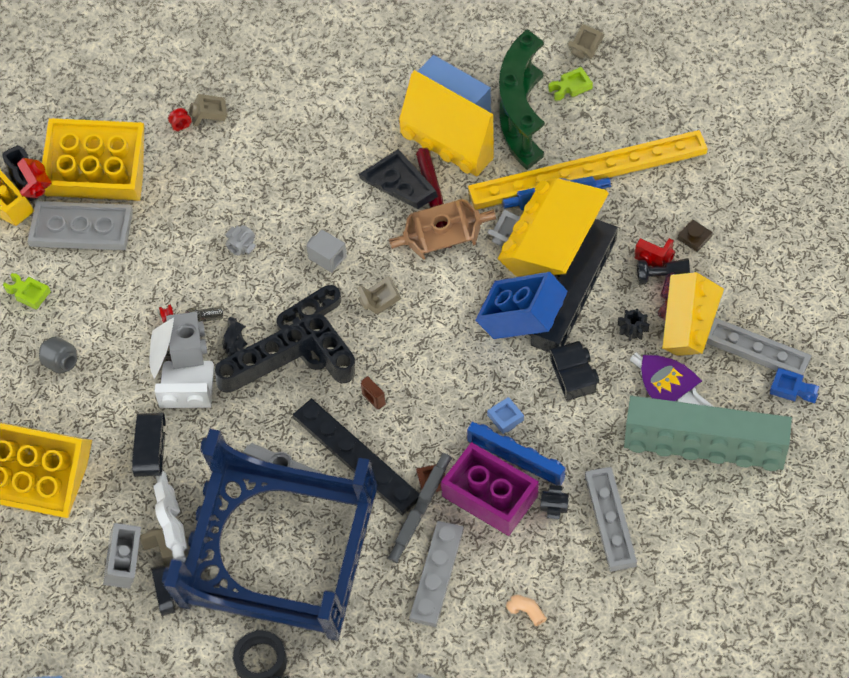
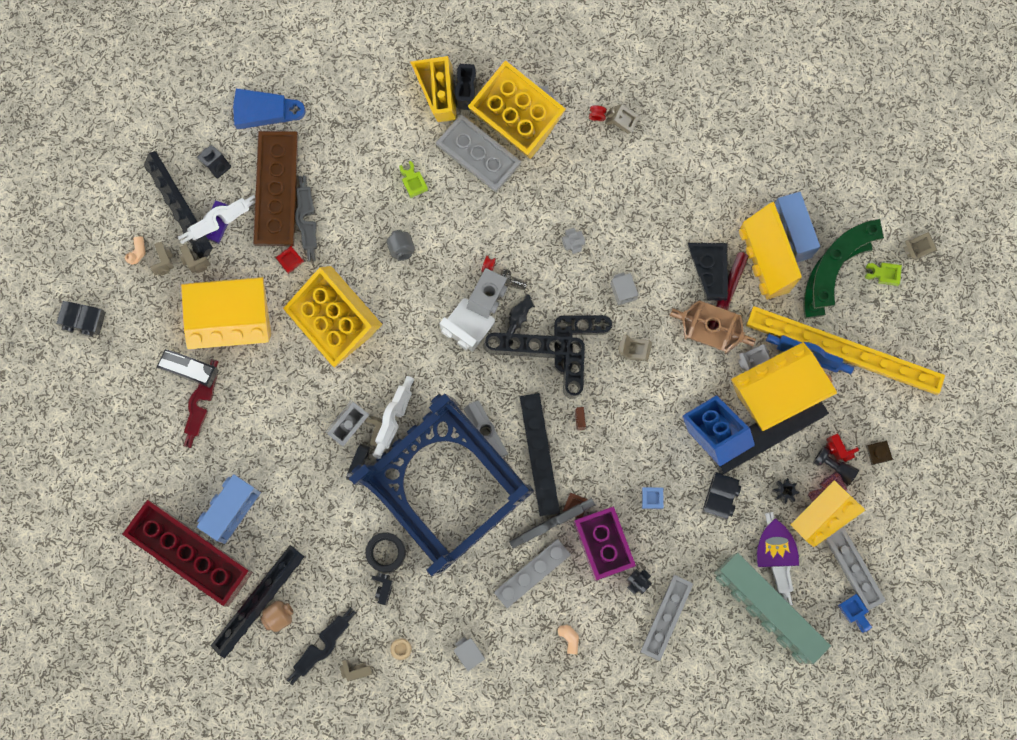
camera: 30 degrees right, 20 degrees up
(36, 177) = (467, 101): red bracket -> none
(148, 445) = (414, 354): black beam -> none
(159, 345) = (468, 286): white sticker -> none
(509, 450) = (644, 537): blue plate -> none

